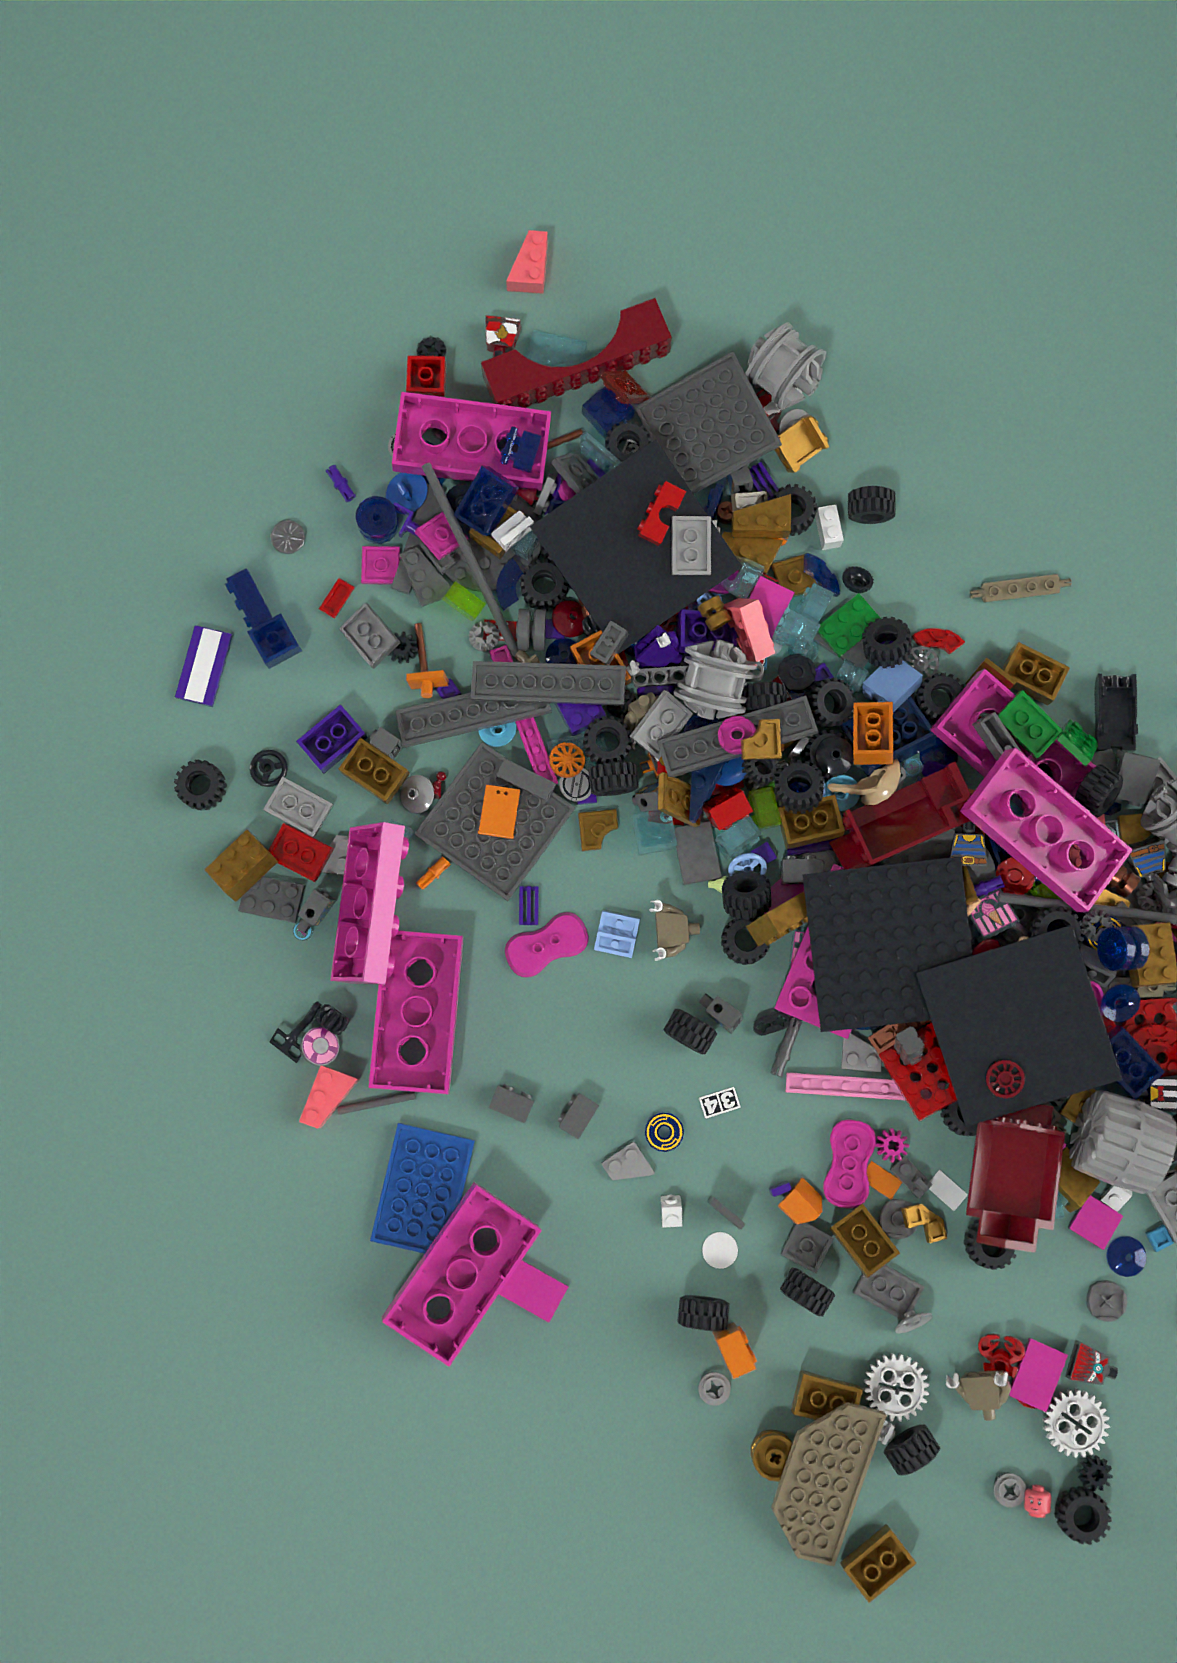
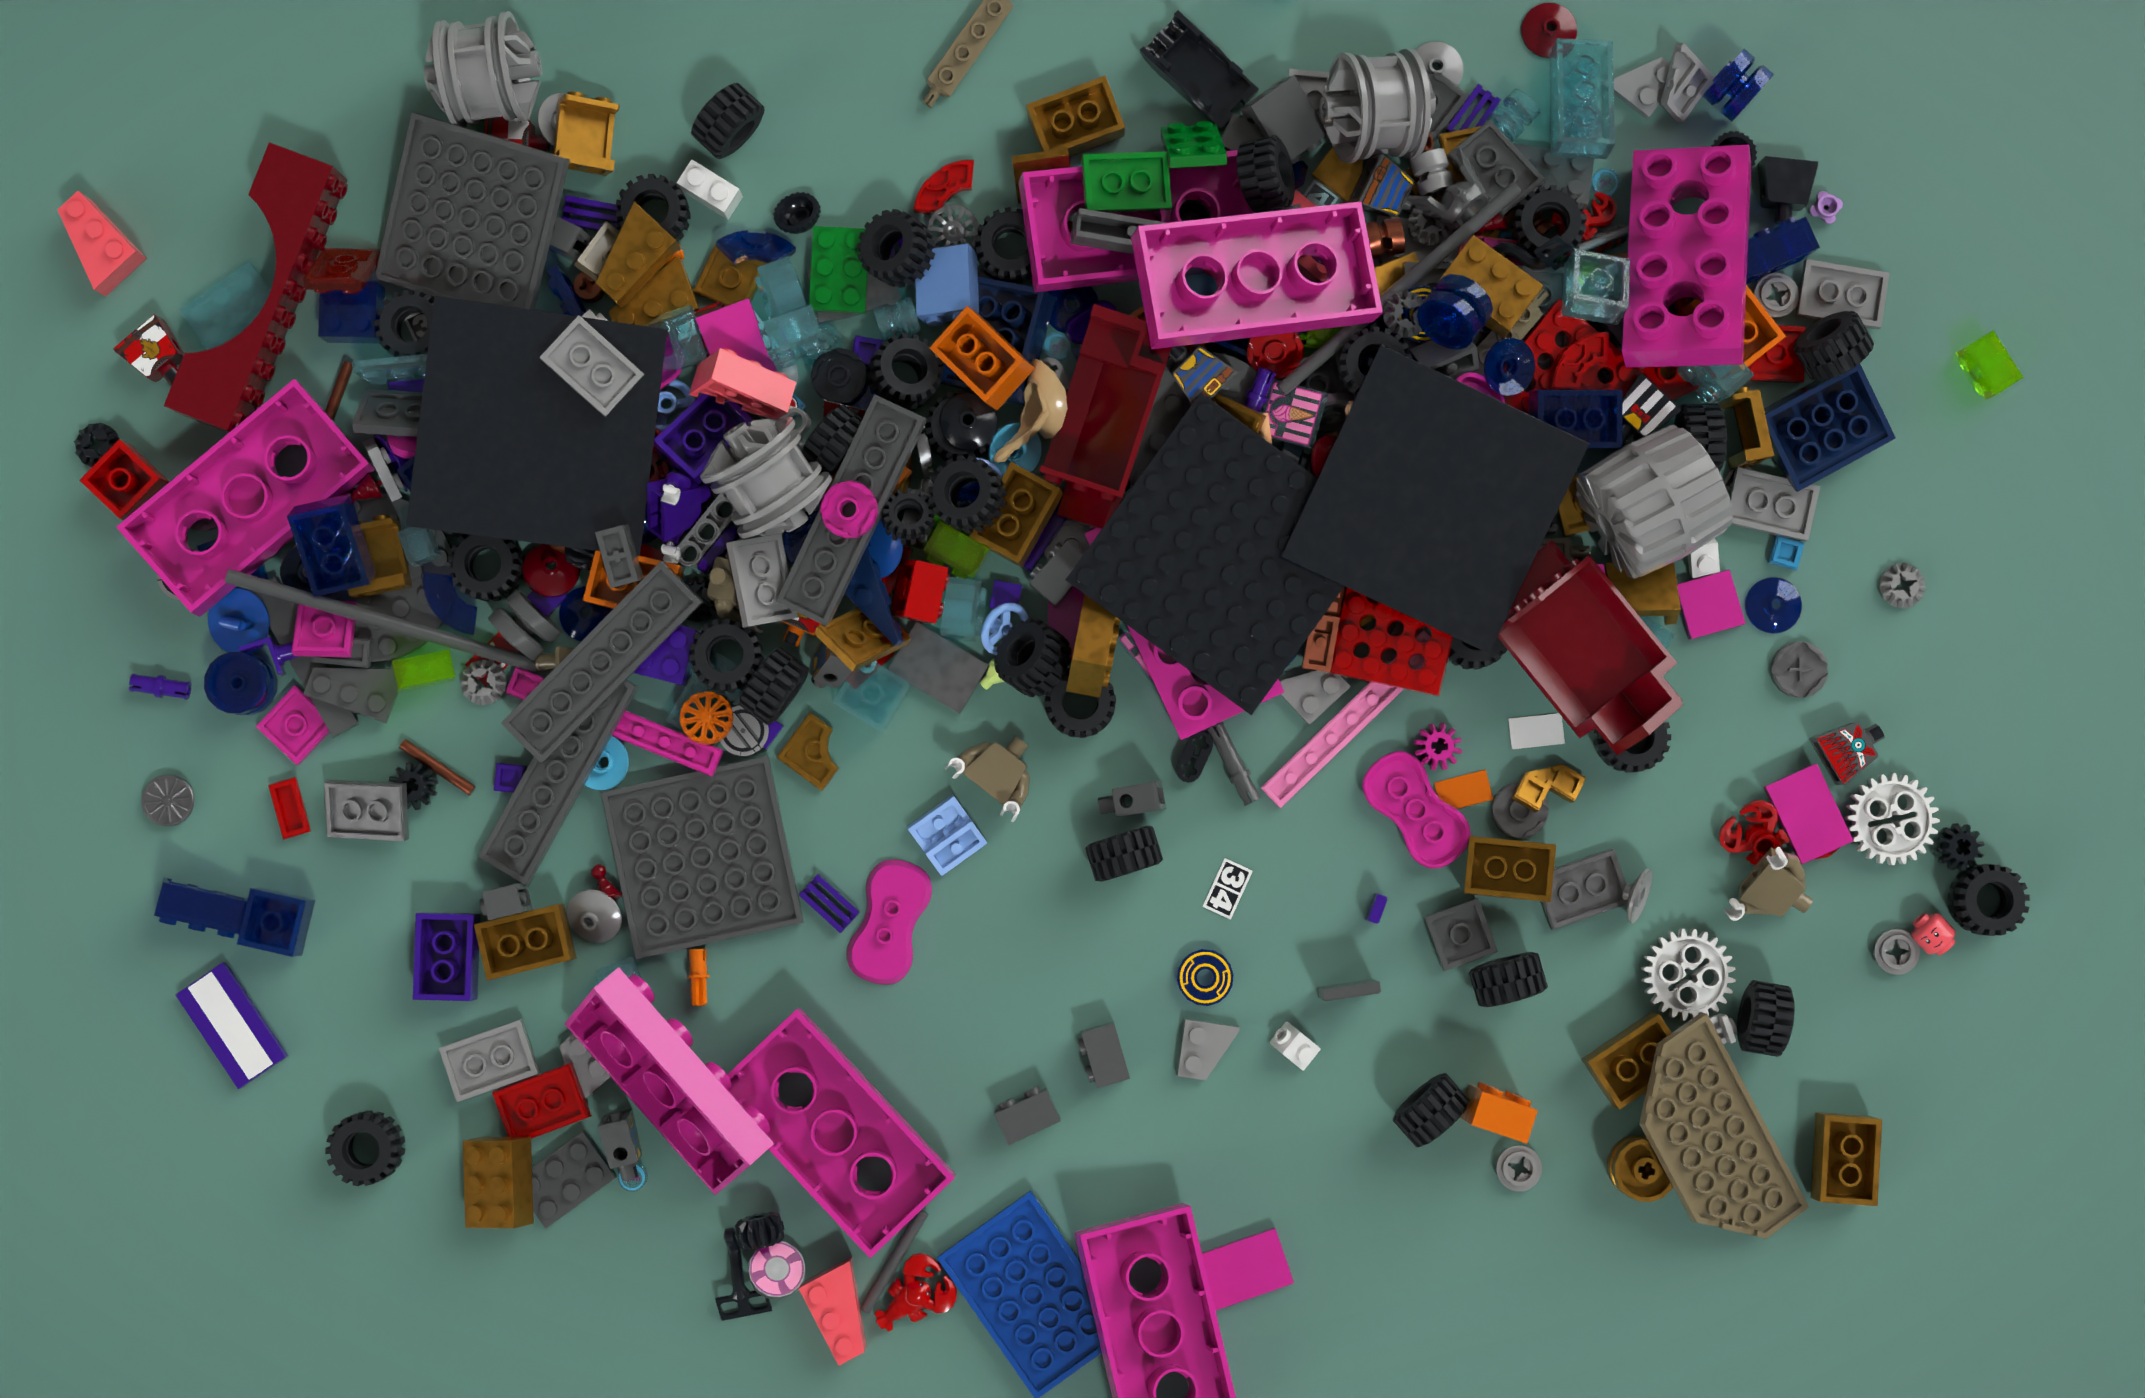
camera: 50 degrees left, 5 degrees up
(266, 773) = (404, 1054): black piece -> none
(369, 1129) = (916, 1294): none -> red animal
(426, 681) = (477, 793): orange tile -> none
(499, 811) = (696, 843): orange container -> none
(512, 530) = (392, 545): white panel -> none
(526, 452) = (316, 449): clear blue plate -> none
(526, 779) = (687, 783): dark grey tile -> none
(667, 497) = (513, 342): red arch -> none
(717, 619) = (701, 410): pearl gold wheel -> none
(720, 1250) = (1382, 1030): white sticker -> none
(764, 742) = (884, 488): pearl gold tile -> none
(802, 1203) = (1411, 898): orange slope -> none
(909, 1046) = (1351, 634): dark grey brick -> none
(911, 1177) = (1489, 756): dark grey hinge -> none
(1005, 1079) = (1477, 566): dark red wheel -> none

